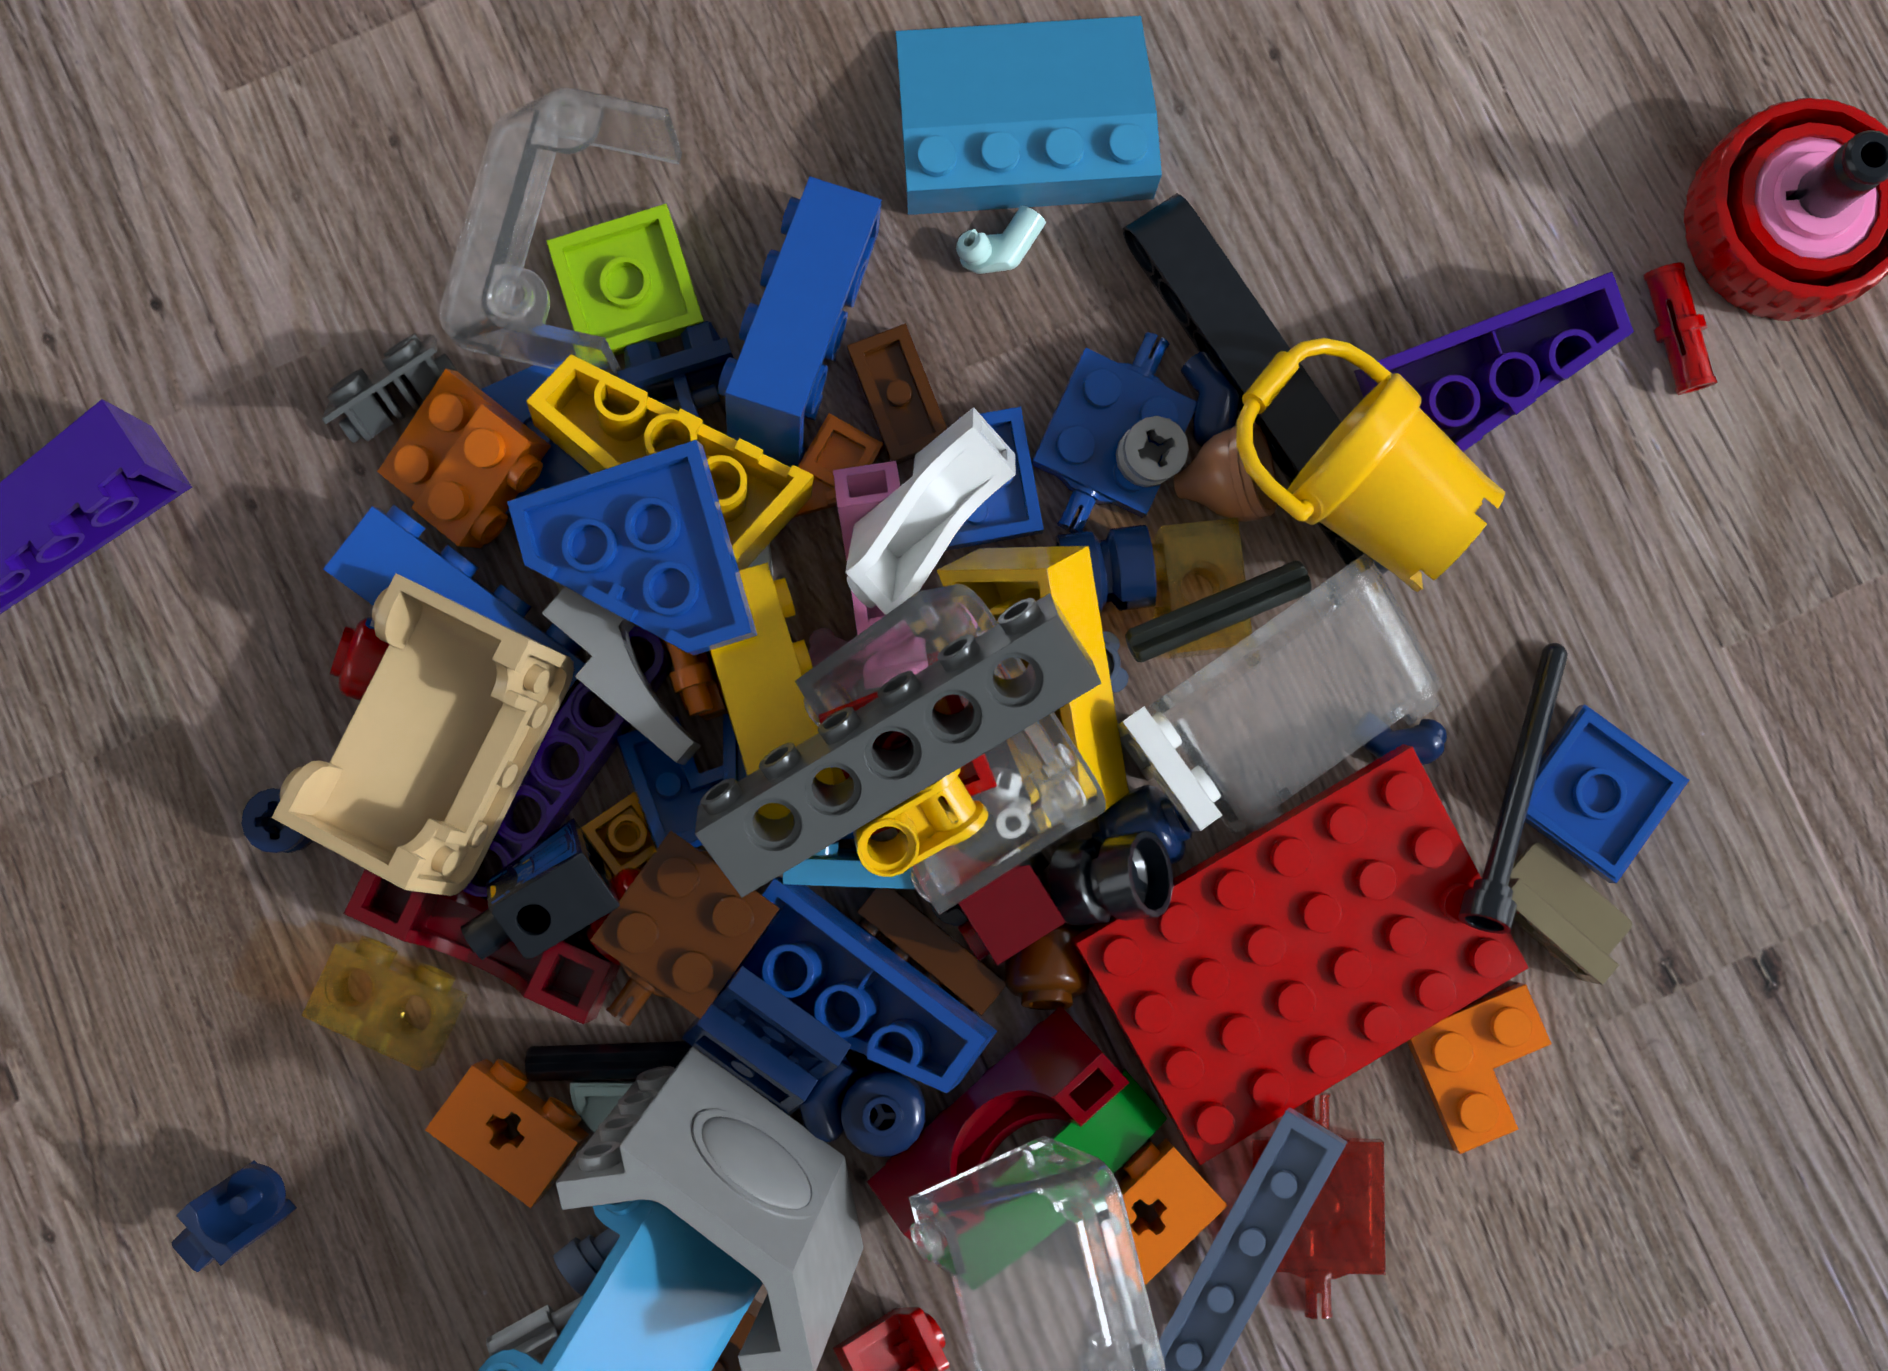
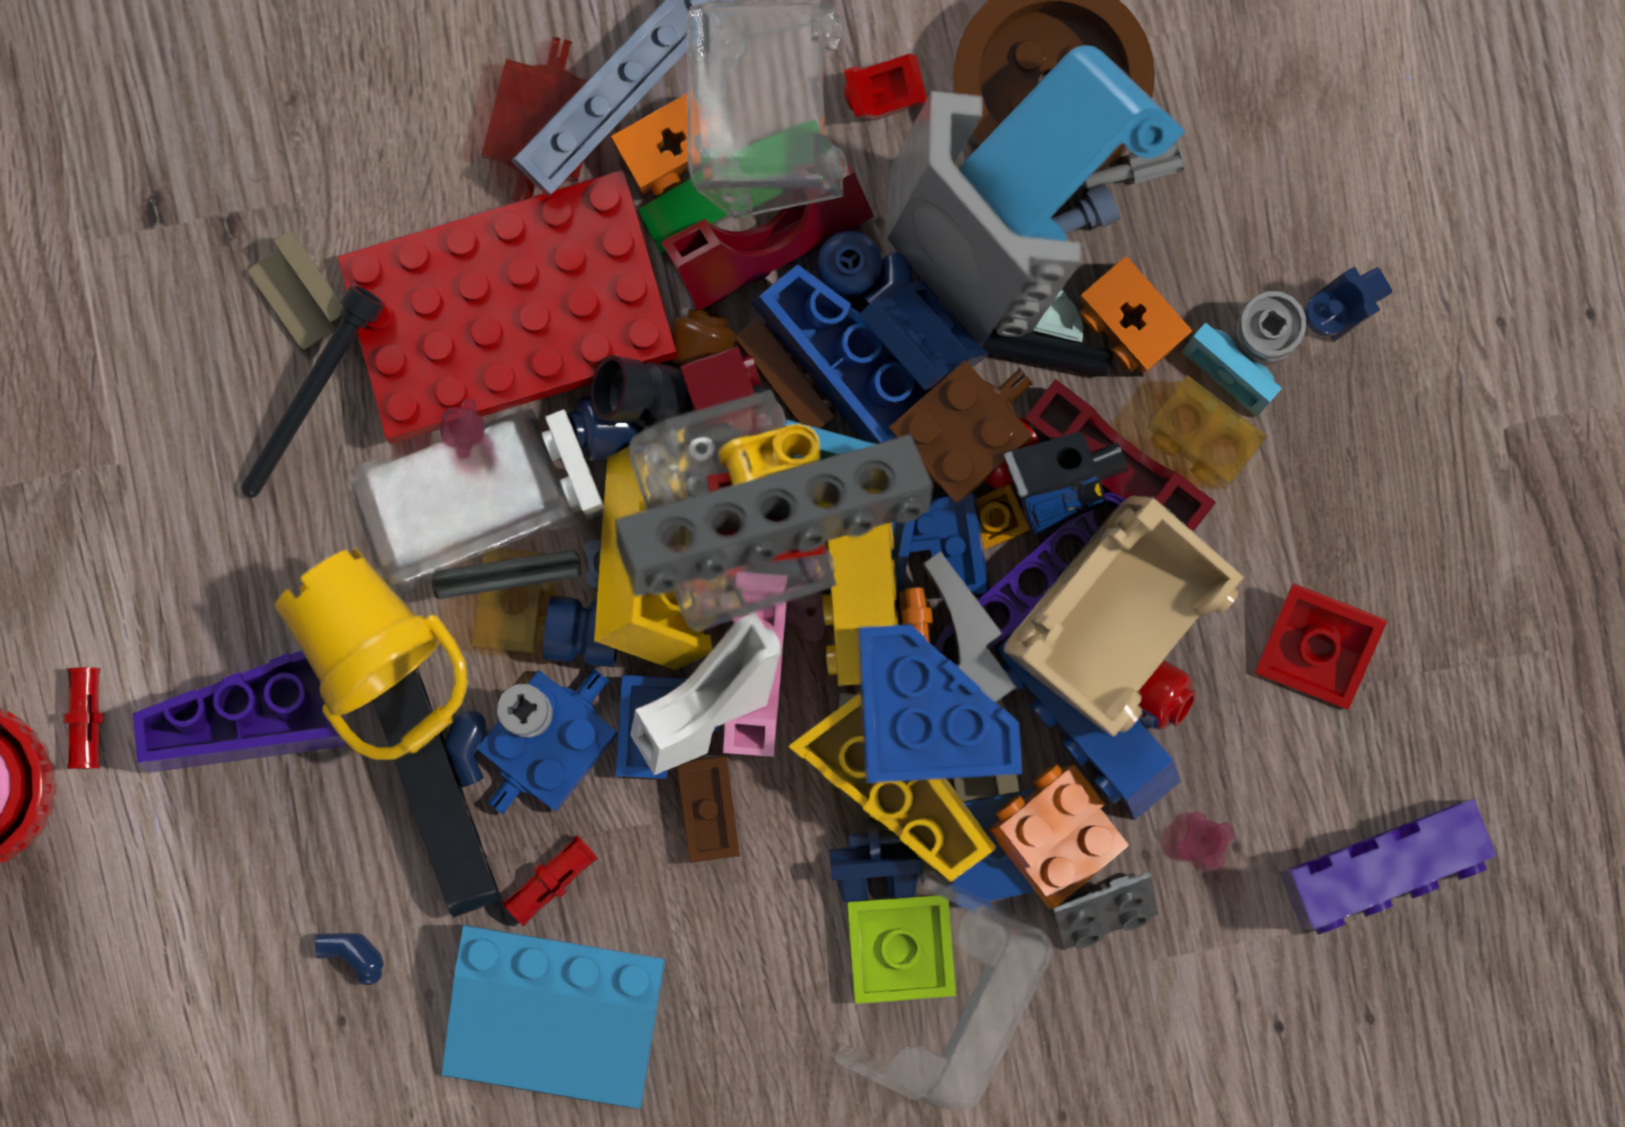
camera: 160 degrees left, 0 degrees up
(189, 770) = (1320, 646): none -> red slope
(259, 827) = (1252, 590): dark blue wheel -> none
(270, 491) = (1219, 836): none -> clear pink plate
(328, 1158) = (1270, 327): none -> light grey wheel
(369, 1092) = (1244, 380): none -> medium azure plate
(799, 318) = (769, 883): blue wedge -> none
(835, 448) = (769, 776): orange tile -> none
(1002, 251) = (599, 908): light aqua arm -> none
(1069, 268) = (550, 880): none -> red pin
(1221, 482) = (483, 678): nougat helmet -> none
(1279, 131) = (356, 951): none -> dark blue arm
(1321, 780) = (462, 428): none -> clear pink plate
(1426, 739) = (373, 443): dark blue arm -> none
(1459, 1062) = (404, 205): orange plate -> none
(1600, 793) = (247, 373): blue plate -> none

